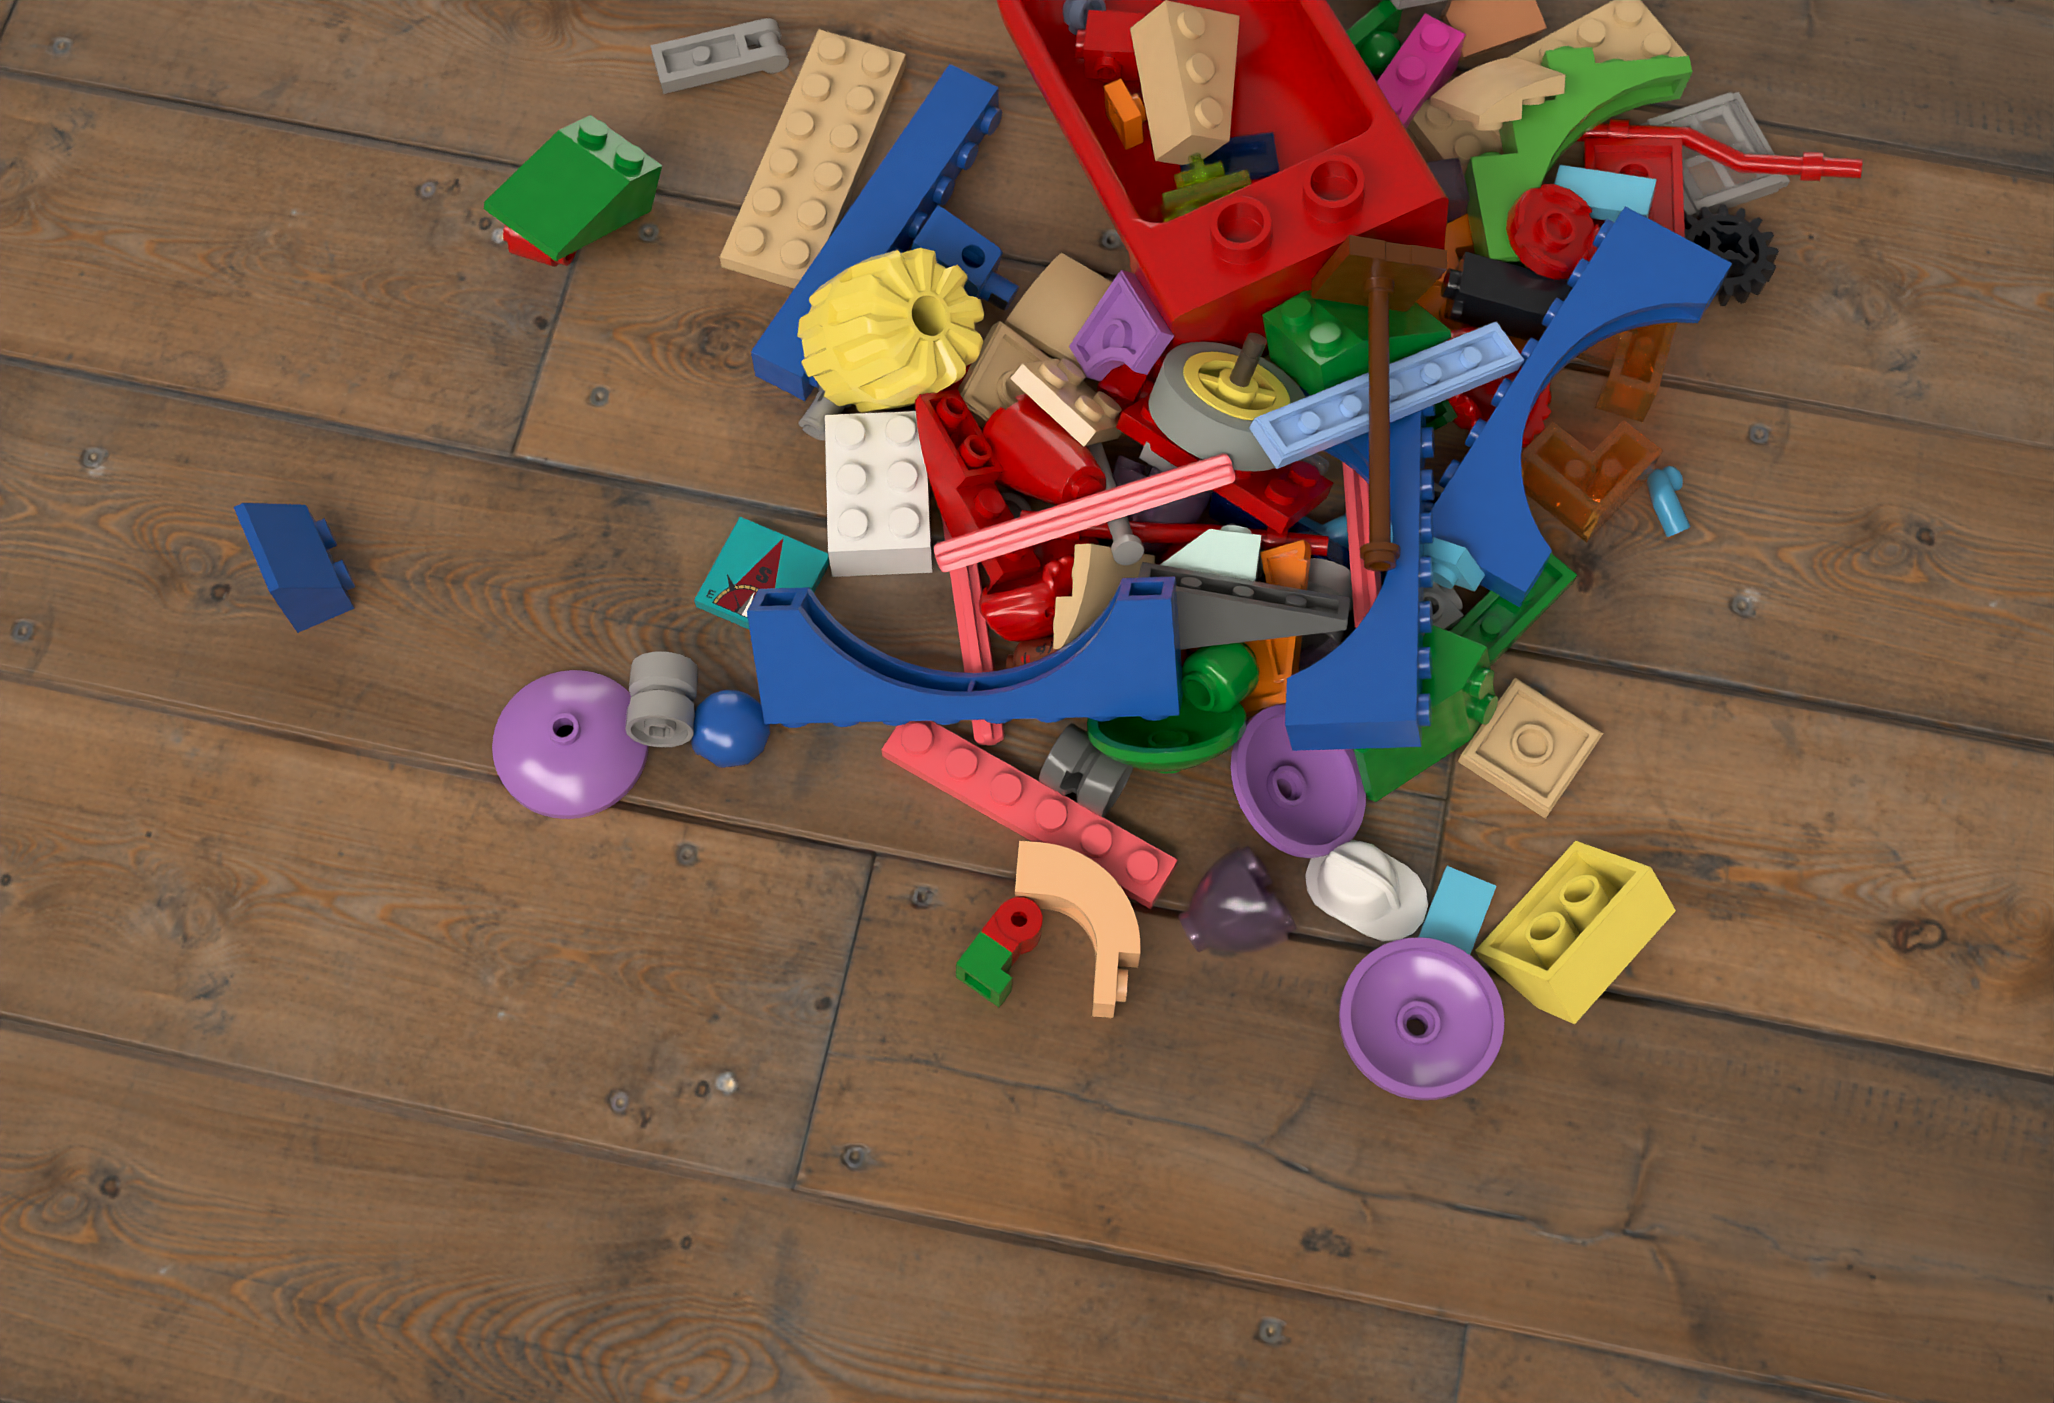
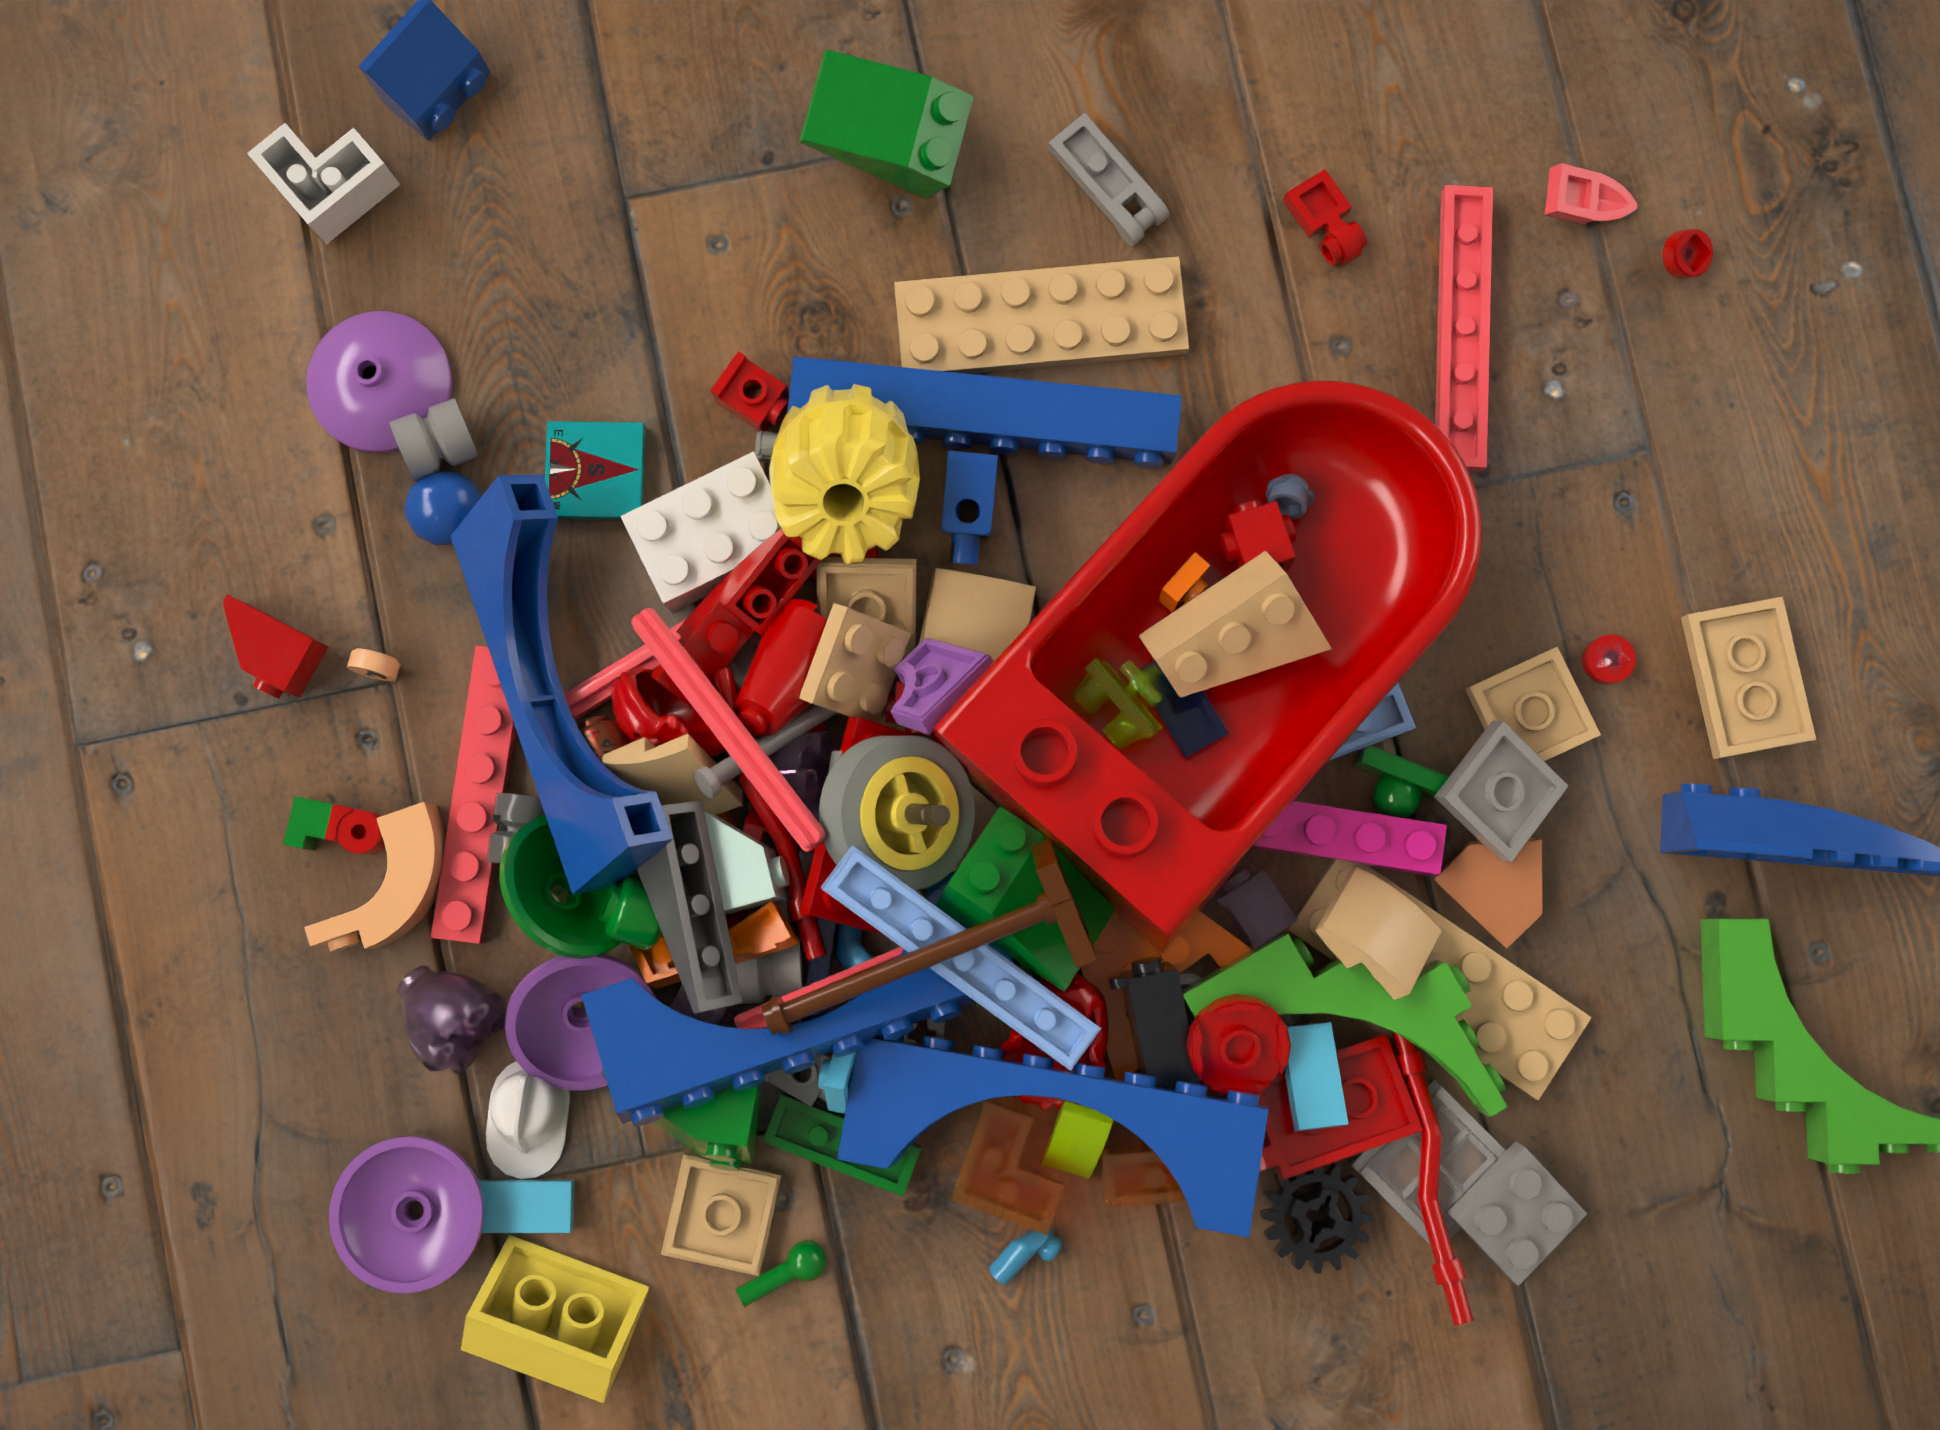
camera: 65 degrees right, 15 degrees up
(351, 710) = (326, 189): none -> white brick
(763, 412) = (734, 383): none -> red brick
(790, 938) = (271, 649): none -> red slope
(855, 849) = (373, 664): none -> light nougat tile
(1583, 400) = (1077, 1140): none -> lime slope
(1604, 694) = (804, 1262): none -> green bar
(1778, 107) = (1517, 1213): none -> light grey plate

